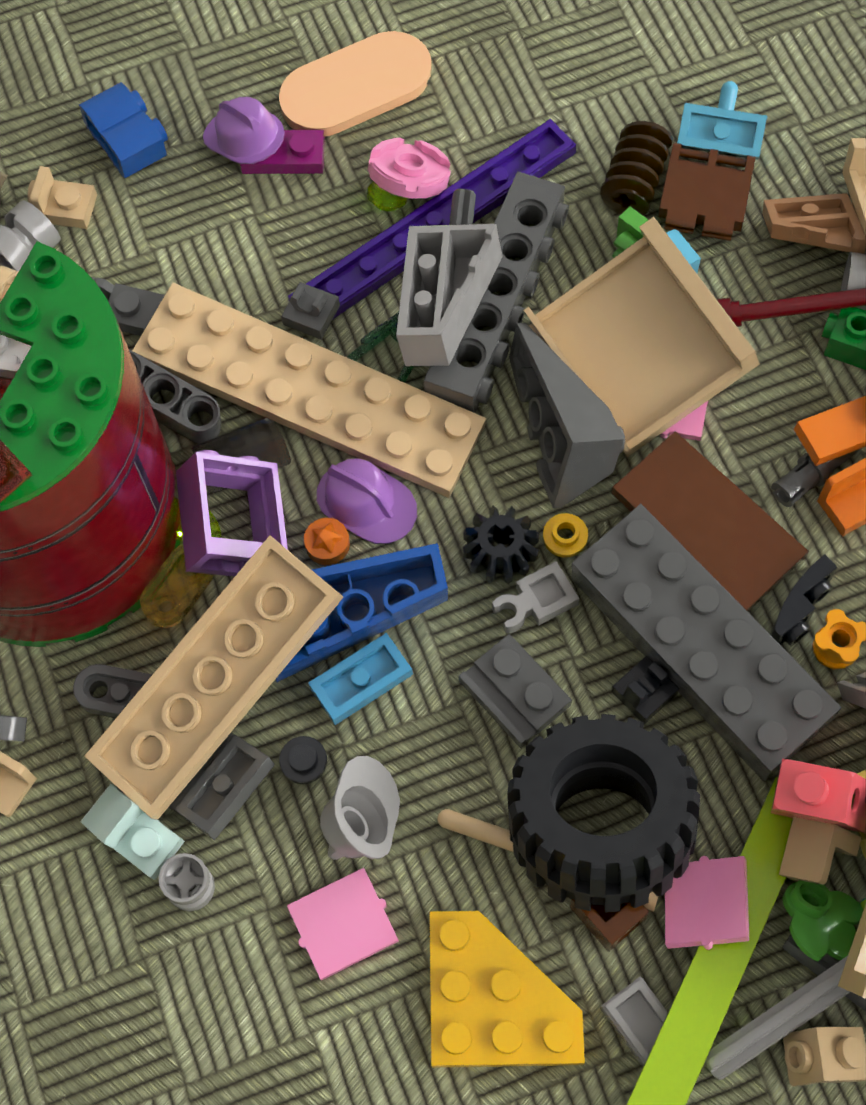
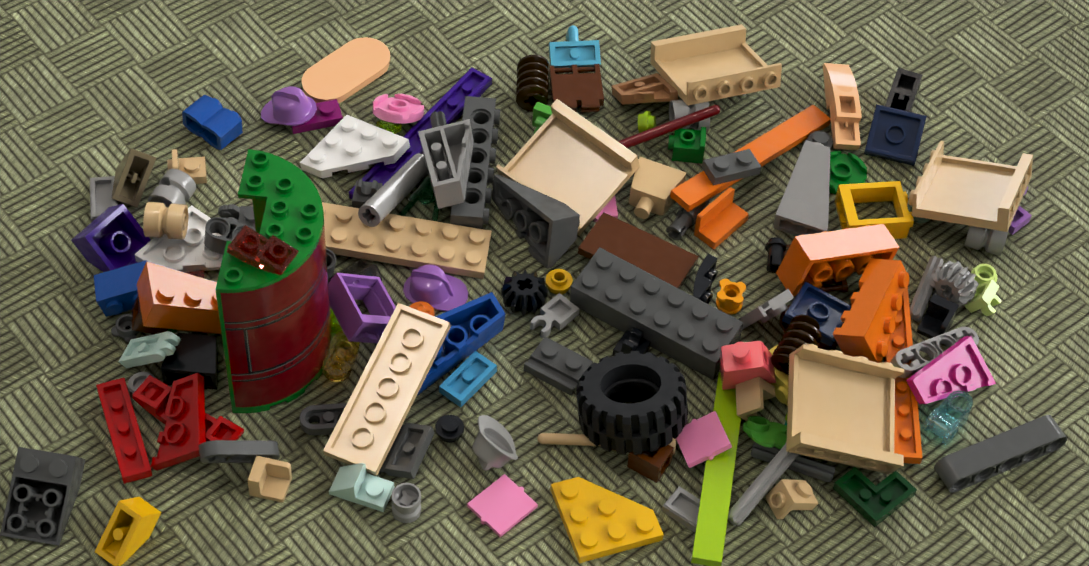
camera: 25 degrees left, 15 degrees down
(320, 220) = (353, 147): none -> white plate
(340, 321) = (393, 191): none -> light grey piece
(773, 402) = (652, 188): none -> tan torso
(800, 280) = (646, 121): none -> lime plate

